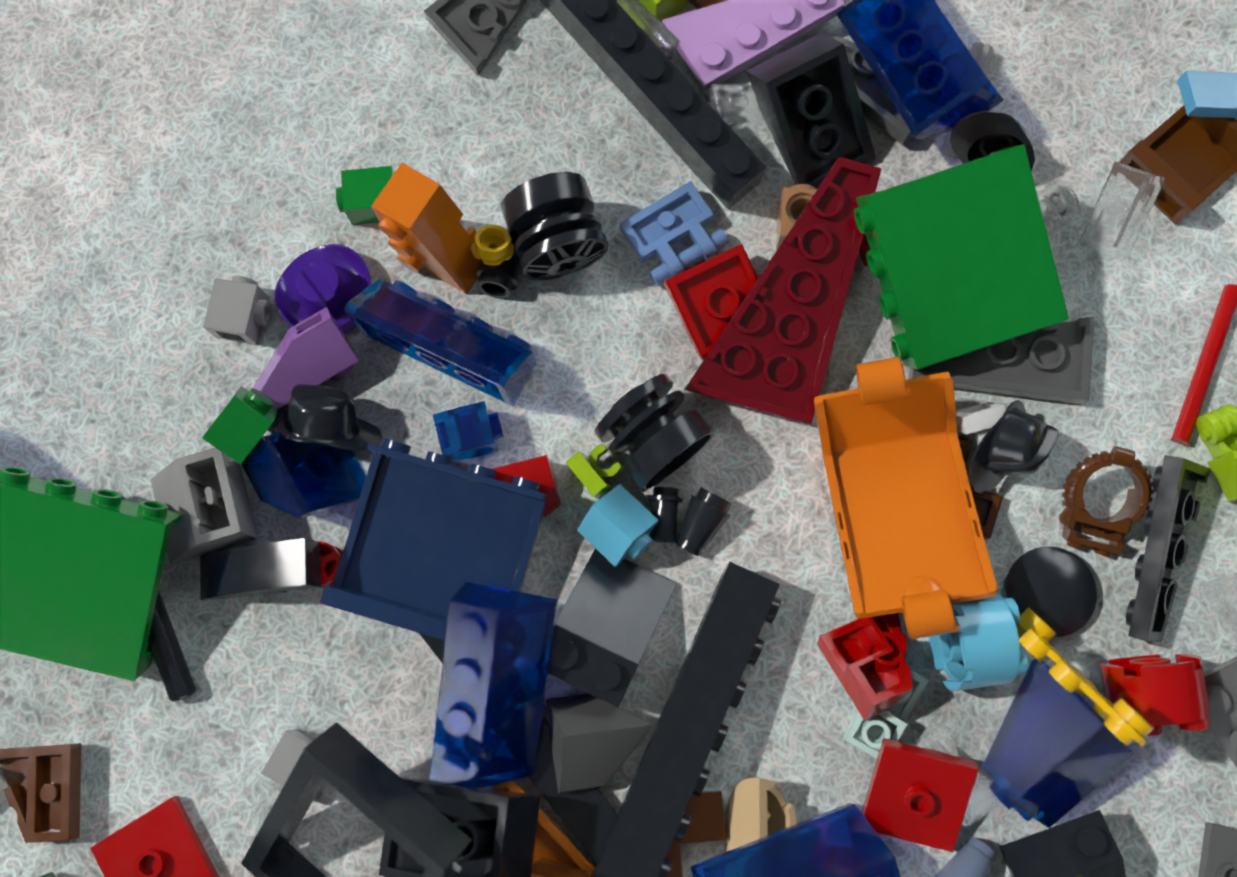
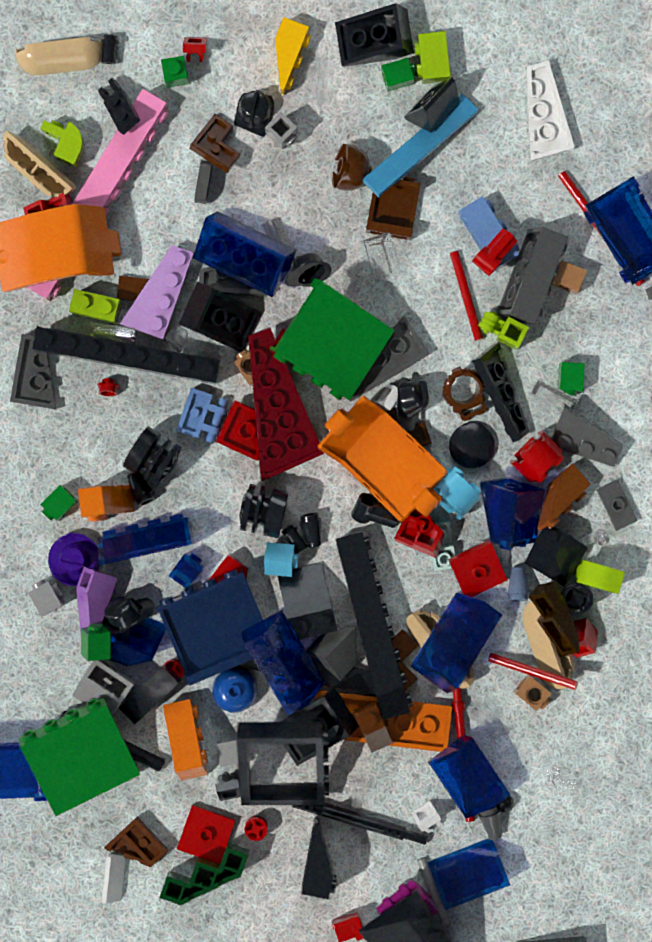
camera: 45 degrees left, 10 degrees up
(241, 817) = (228, 789): none -> black tile
(246, 685) = (185, 739): none -> orange wedge
(388, 670) = (235, 689): none -> blue cylinder
(492, 245) = (129, 482): yellow plate -> none
(573, 92) = (108, 387): none -> red plate
(590, 472) = (251, 547): lime tile -> none
(816, 560) = (369, 509): none -> black piece
(1118, 717) = (475, 469): yellow plant -> none
(1154, 787) = (560, 493): none -> dark orange slope
(1167, 54) = (351, 168): none -> reddish brown cylinder

